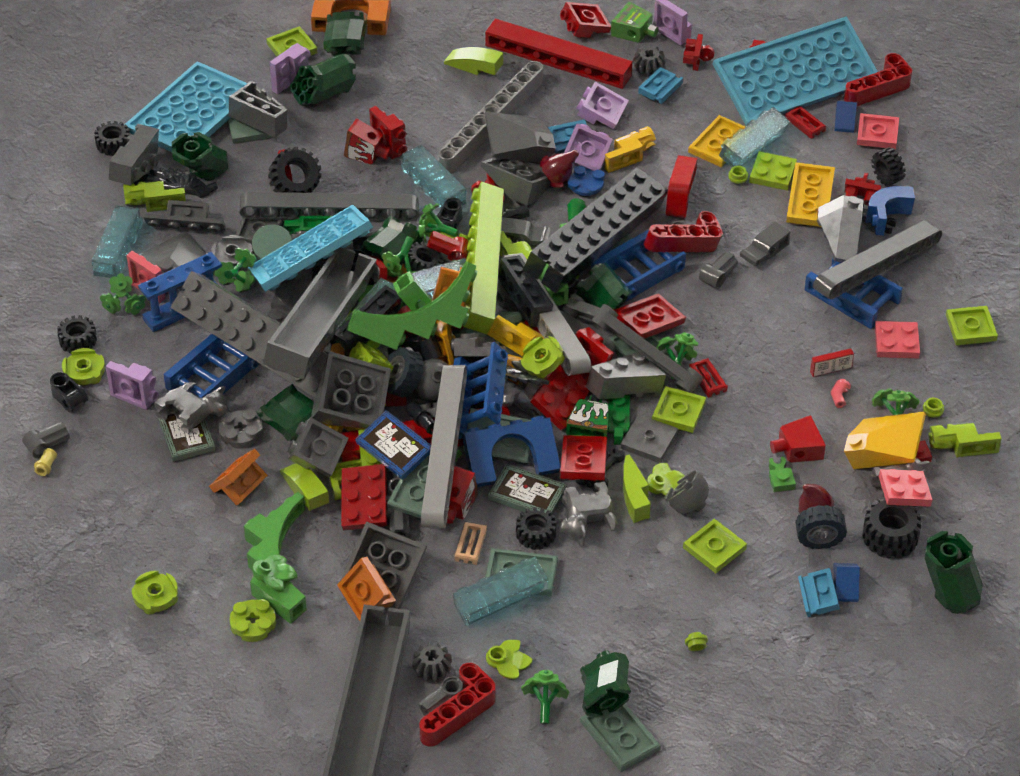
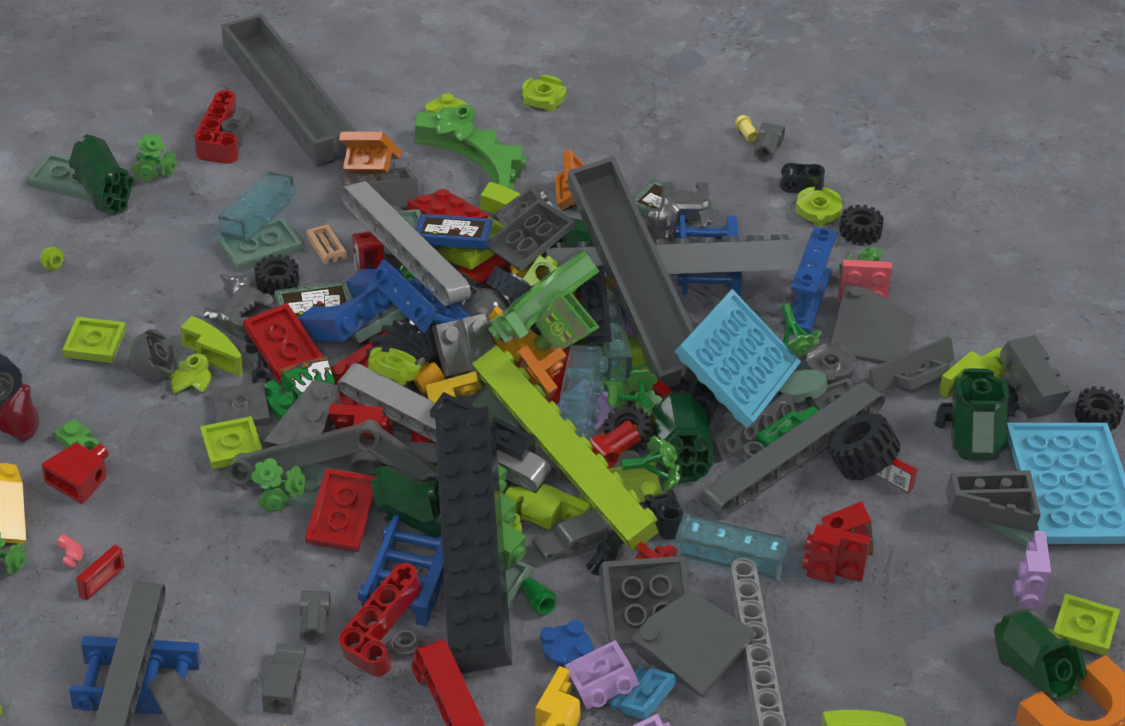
camera: 140 degrees right, 5 degrees down
(117, 241) = (944, 312): clear light blue brick -> none
(132, 384) = (751, 194): lavender plate -> none
(323, 80) = (983, 579): dark green brick -> none
(432, 662) = (269, 144): dark grey gear -> none
(510, 660) = (210, 179): lime plate -> none
(559, 167) = (608, 623): dark red hat -> none
(705, 387) = (227, 499): red tile -> none
(897, 339) = (44, 651): coral plate -> none

